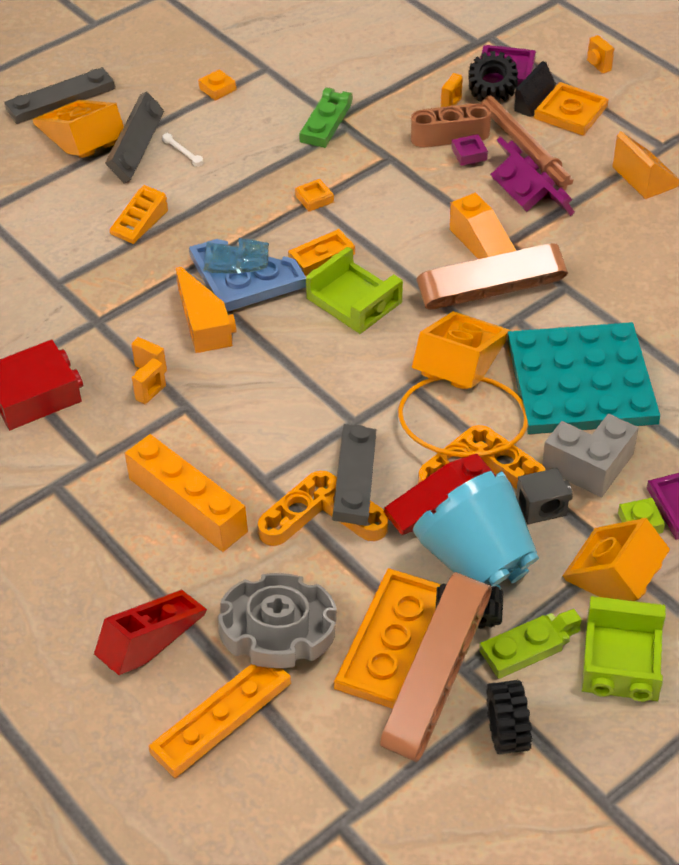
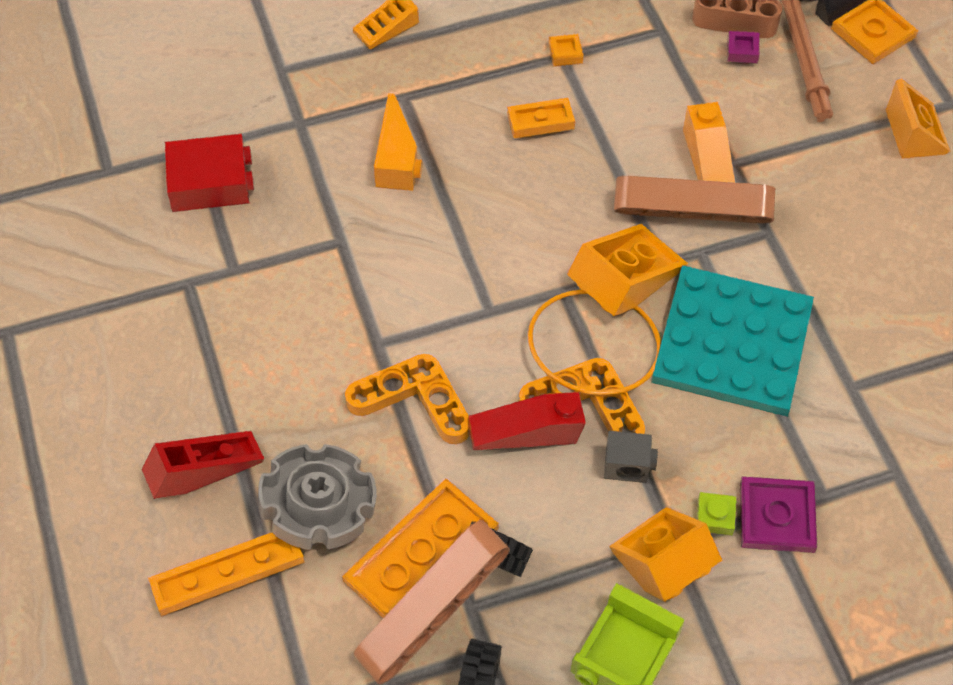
camera: 20 degrees right, 10 degrees up
(144, 351) = (326, 179): light orange tile -> none
(148, 381) = (314, 205): light orange plate -> none
(186, 492) = (295, 335): light orange brick -> none
(246, 257) = (452, 101): clear light blue slope -> none
(250, 287) = (456, 118): medium blue plate -> none
(352, 292) = (551, 170): lime panel -> none
(354, 475) = (457, 371): dark grey plate -> none
(480, 531) = (540, 481): medium azure cone -> none
(523, 182) = (781, 101): magenta bracket -> none
(529, 642) = (543, 604): lime hinge -> none
(591, 459) = (694, 435): light grey brick -> none

